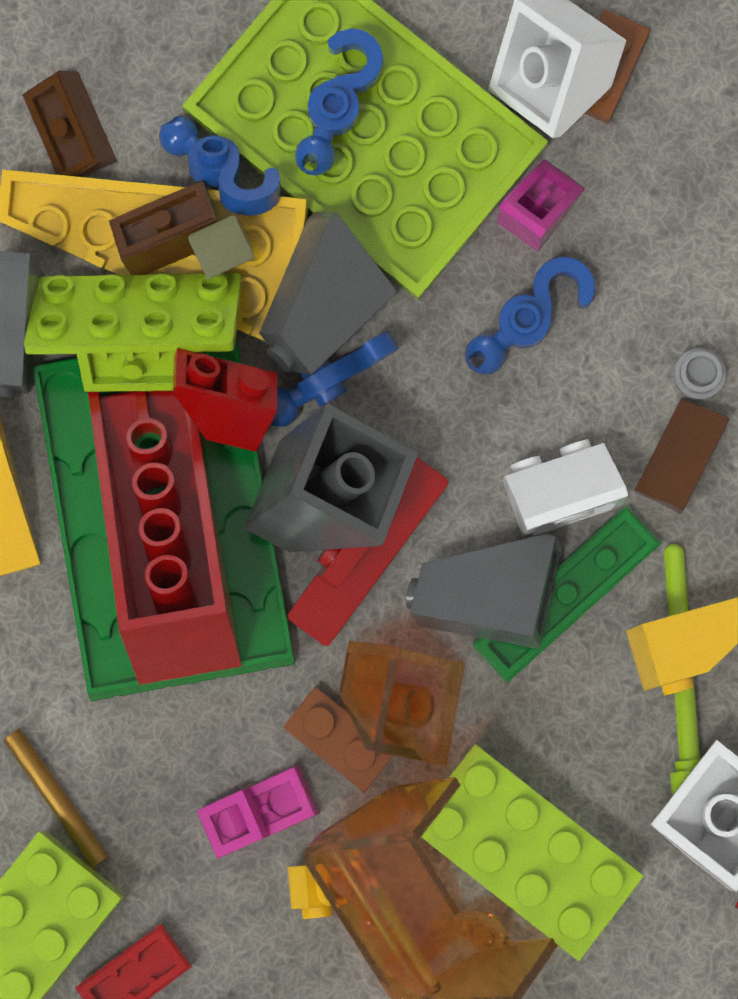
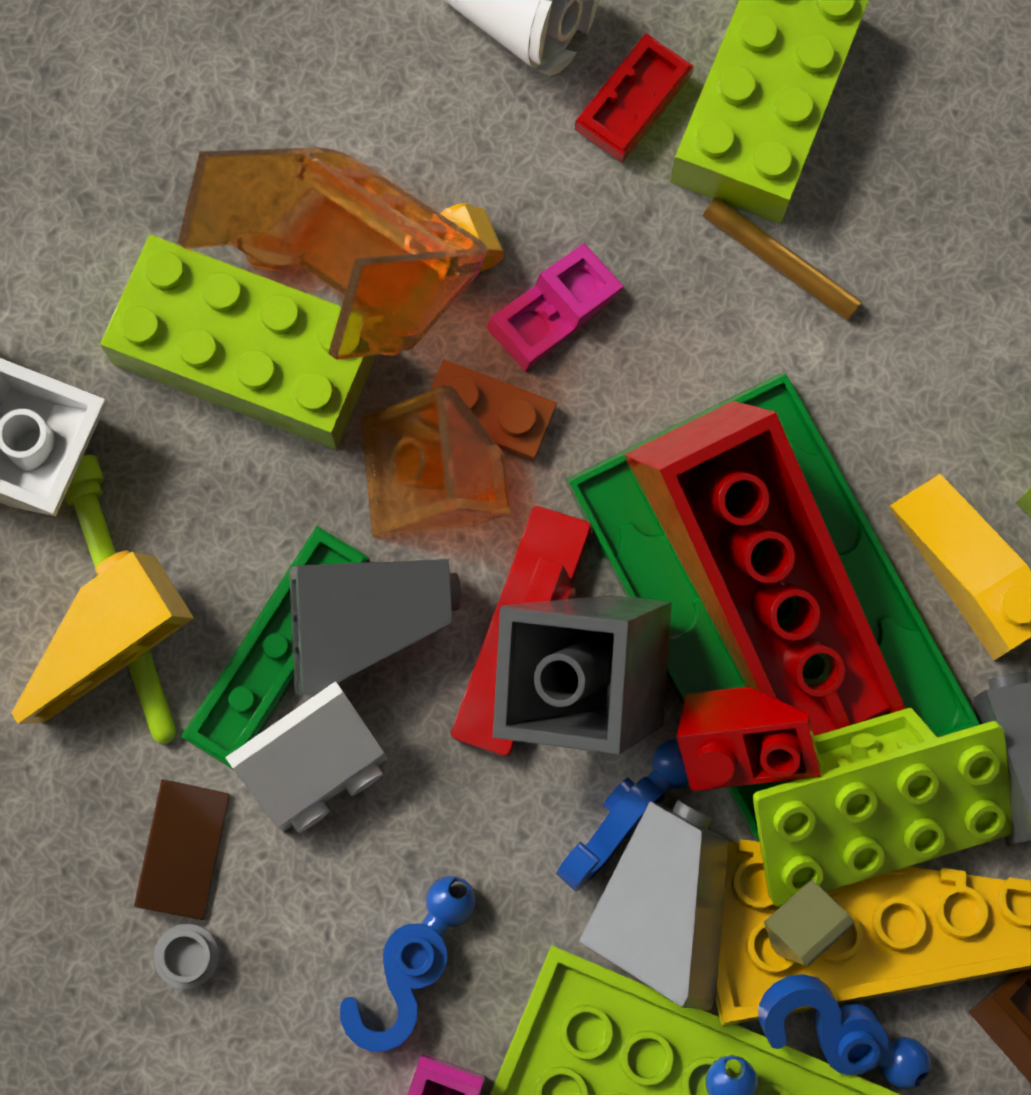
camera: 155 degrees right, 5 degrees down
(160, 230) = (889, 931): reddish brown slope -> none

